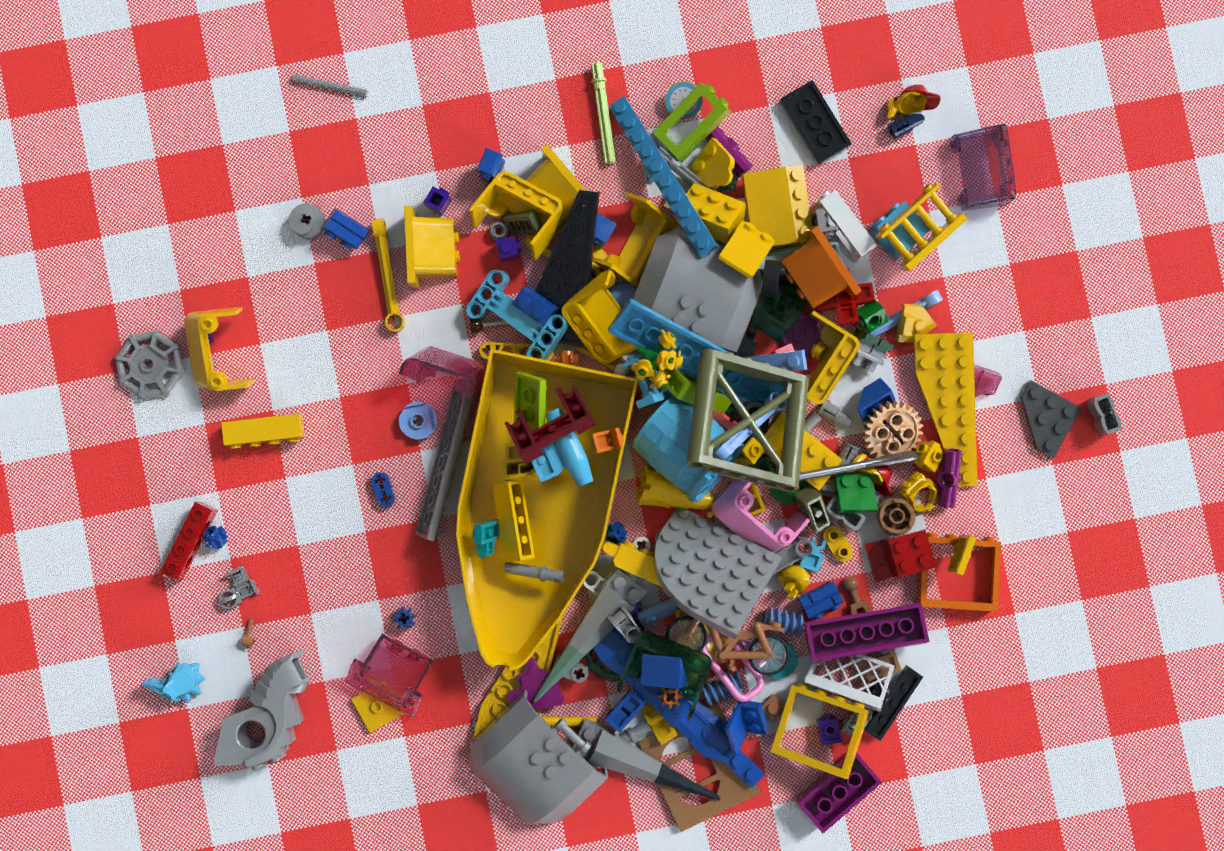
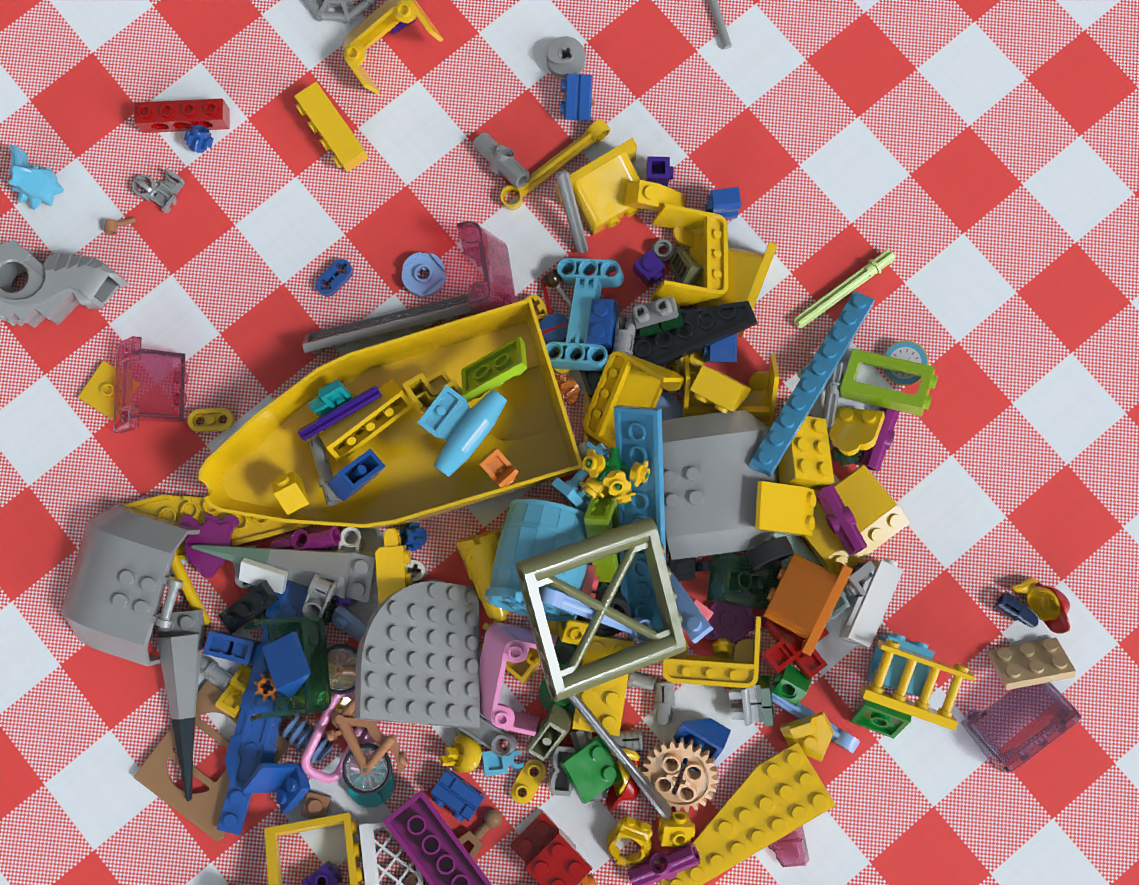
camera: 65 degrees right, 5 degrees down
(362, 314) = (501, 160): none -> light grey piece
(402, 622) = (220, 369): blue gear -> none
(434, 282) = (571, 211): none -> light grey axle
(443, 639) = (212, 420): none -> yellow plate
(456, 215) = (651, 196): none -> yellow slope
(497, 537) = (339, 413): none -> dark purple axle
(513, 342) = (555, 325): none -> blue piece
(531, 442) = (452, 387): dark red wedge -> none
(540, 604) = (290, 492): none -> yellow slope
(552, 257) = (650, 315): none -> light grey hips
(552, 549) = (356, 475): none -> blue brick
(554, 297) = (624, 334): none -> light grey hinge
(578, 605) = (315, 539): none -> magenta piece
(586, 658) = (256, 572): none -> white tile
(602, 682) = (248, 607): none -> black plate
(631, 247) = (720, 389): none -> yellow slope
(775, 213) = (841, 520): none -> magenta piece
(789, 622) = (414, 771): medium blue piece -> none
(815, 122) = (963, 512): black plate -> none
(895, 516) = (589, 828): medium nougat cone -> none
(929, 267) = (880, 719): none -> green plate
(948, 136) = (1031, 663): none -> tan plate

